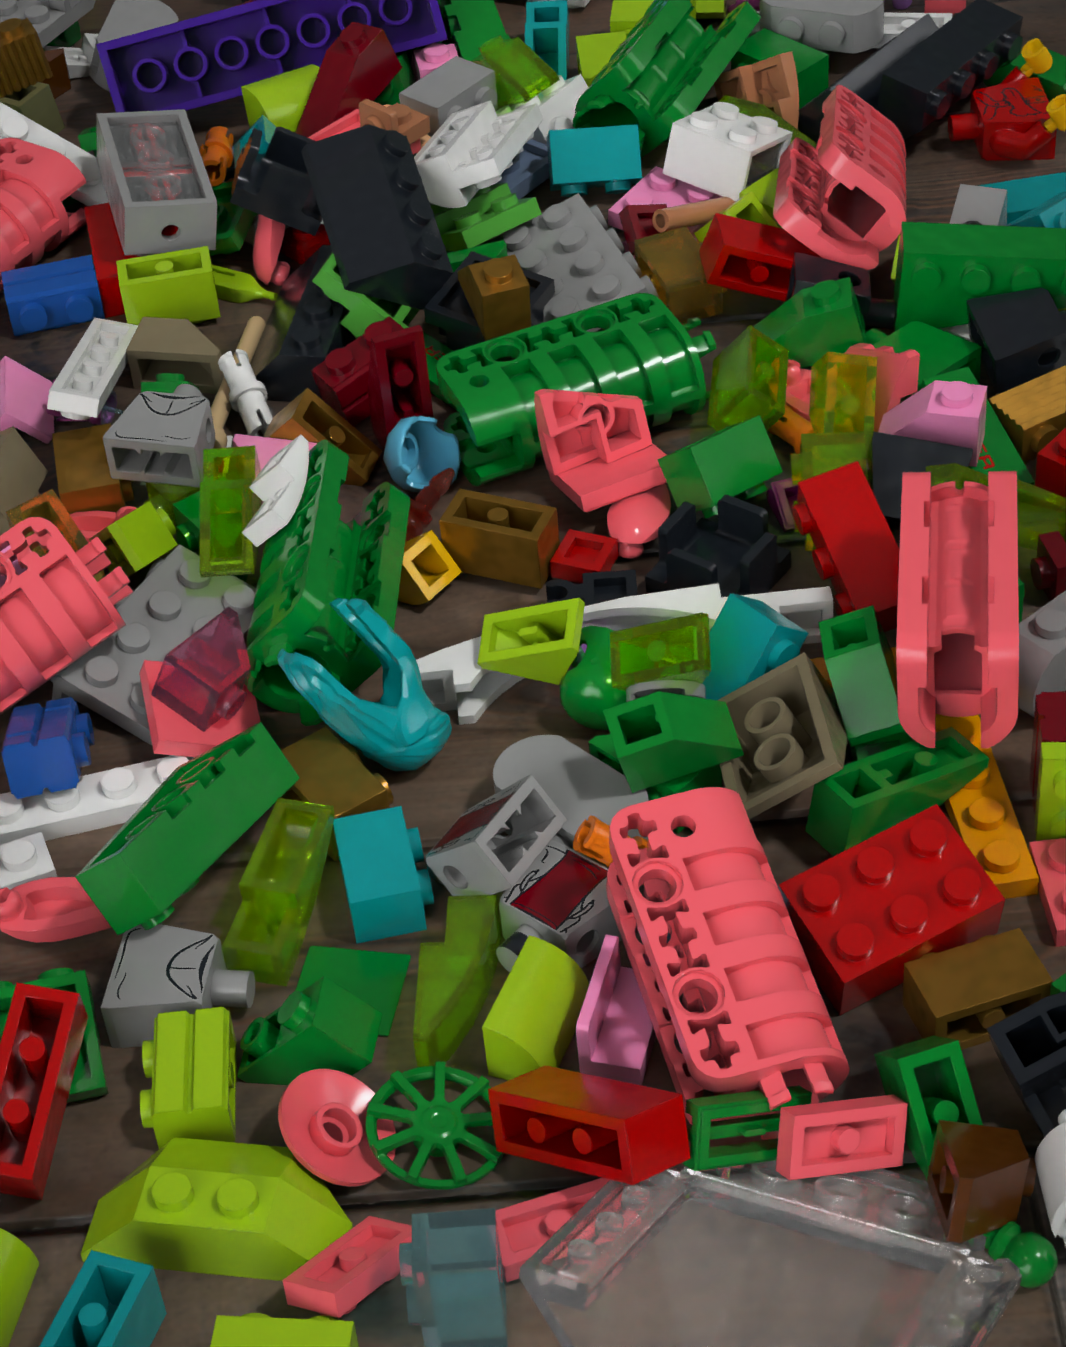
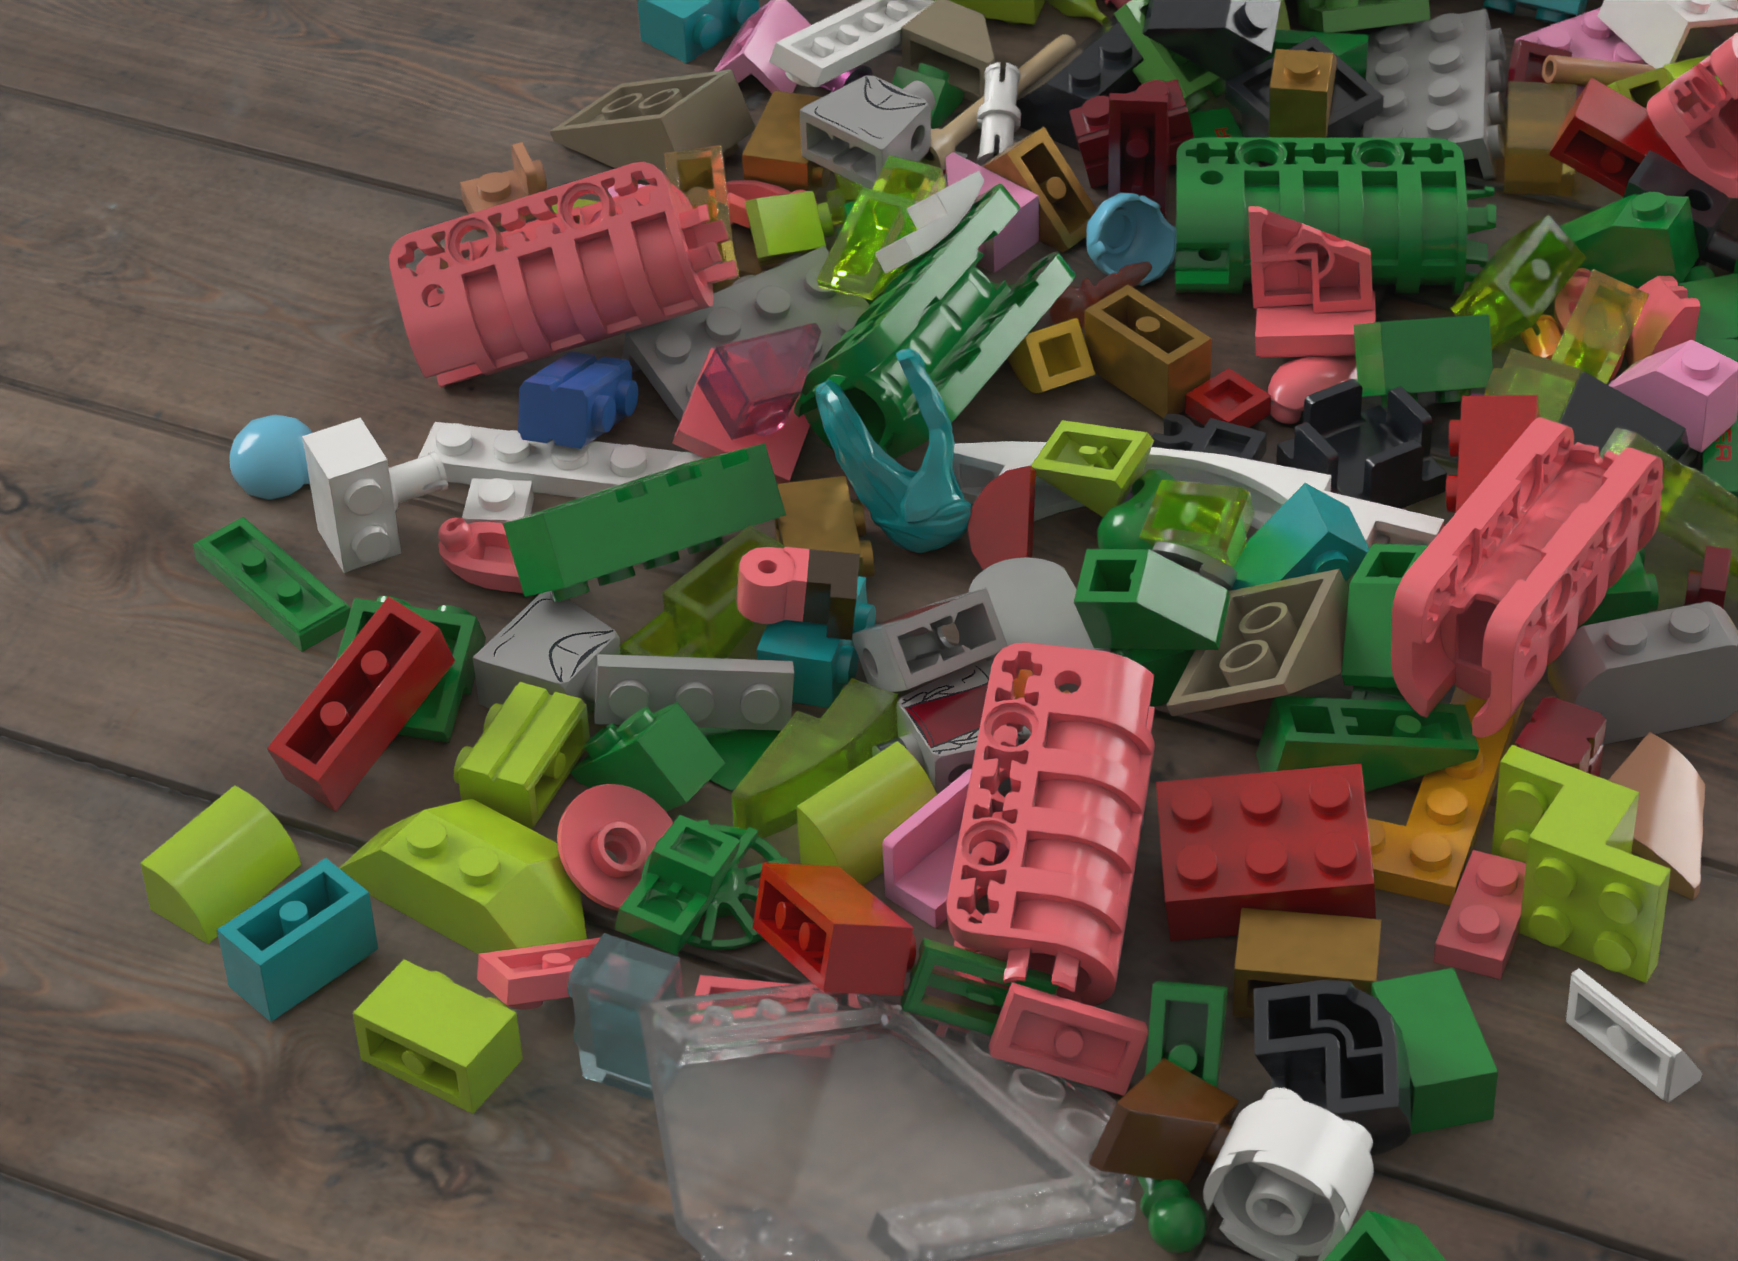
camera: 25 degrees right, 0 degrees up
(339, 950) = (708, 690): none -> light grey plate
(366, 834) = (799, 587): none -> leg
(414, 1140) = (678, 886): none -> green slope
(479, 717) = (1004, 518): none -> red tile

